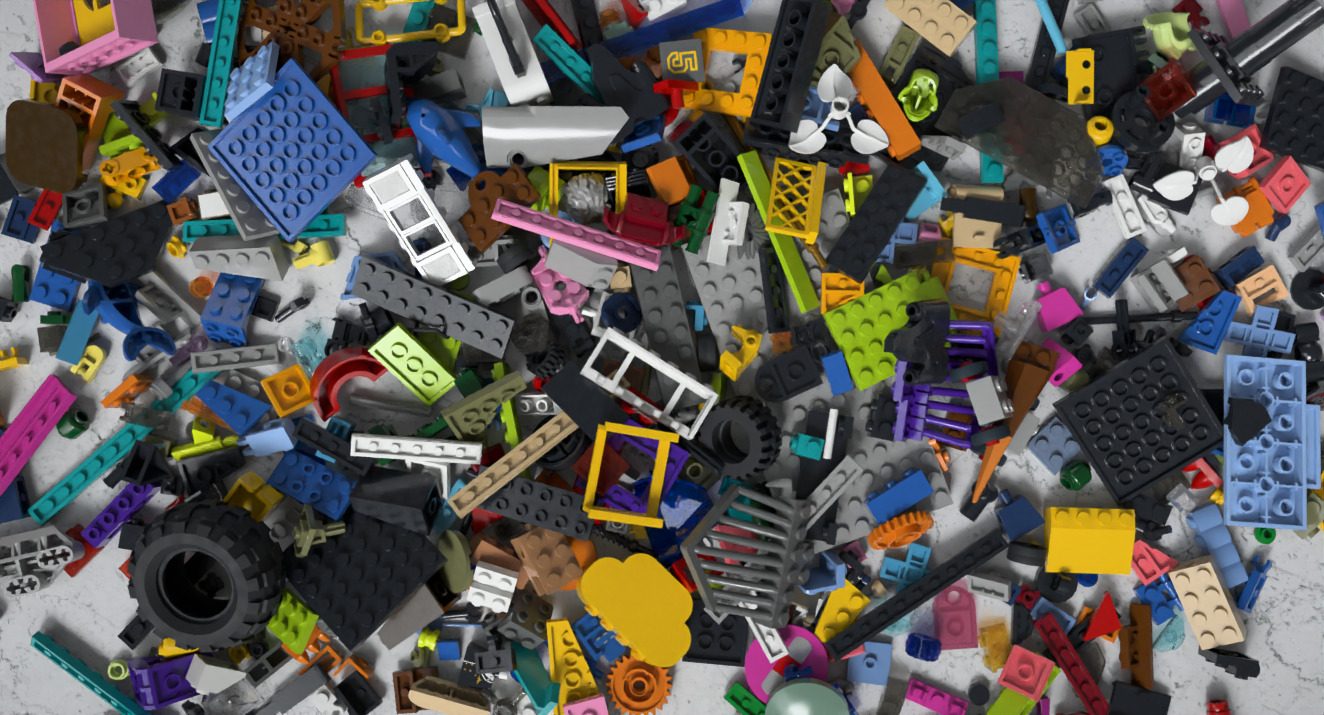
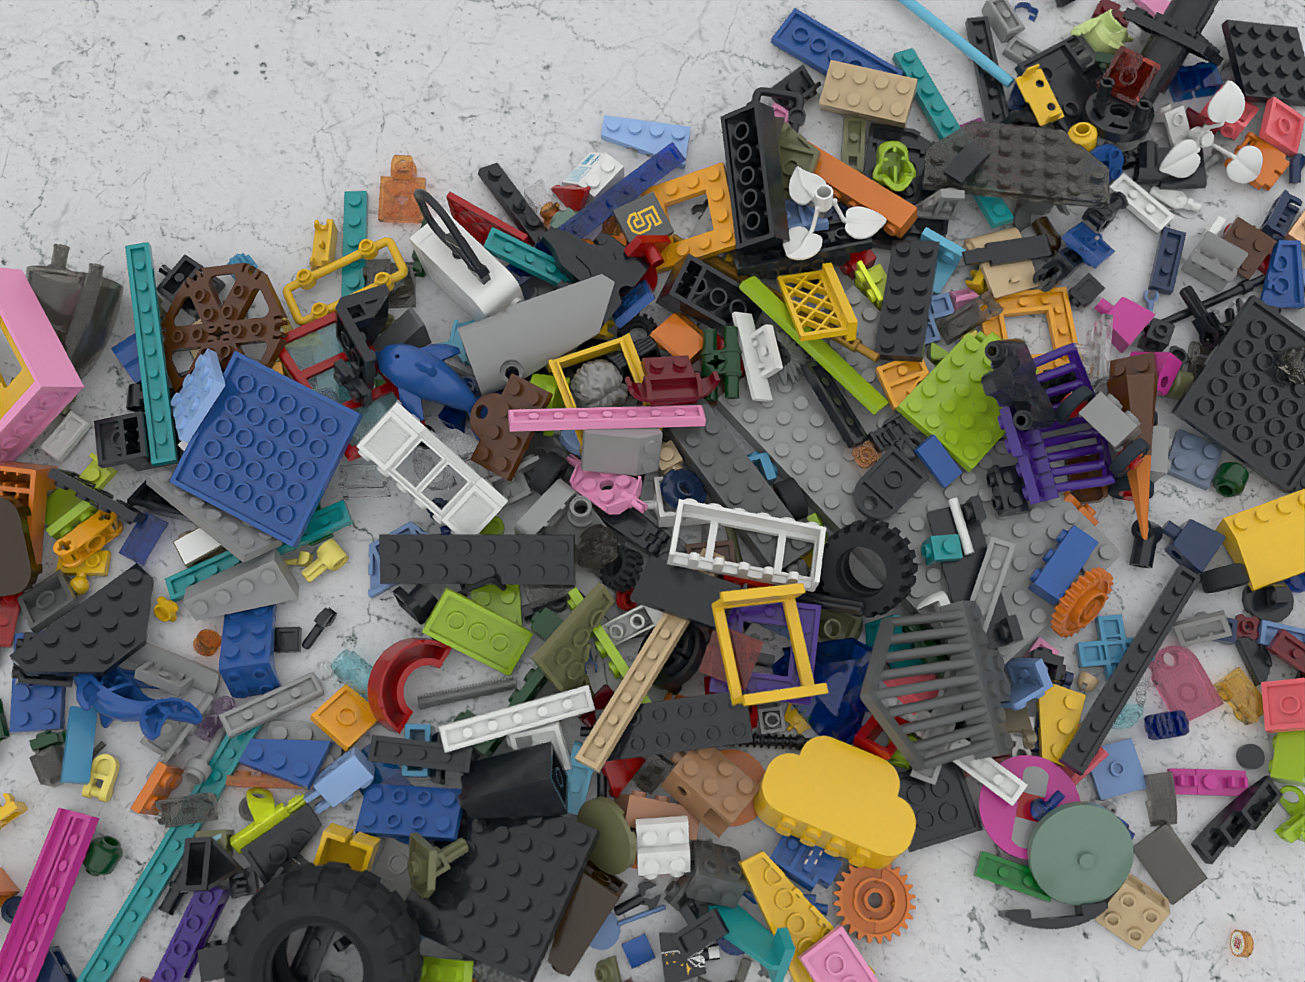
camera: 25 degrees left, 15 degrees down
(183, 210) = (161, 567): dark orange bracket -> none
(343, 332) = (389, 630): black piece -> none
(429, 638) = (610, 944): neon yellow wheel -> none
(737, 362) = (834, 464): yellow tile -> none

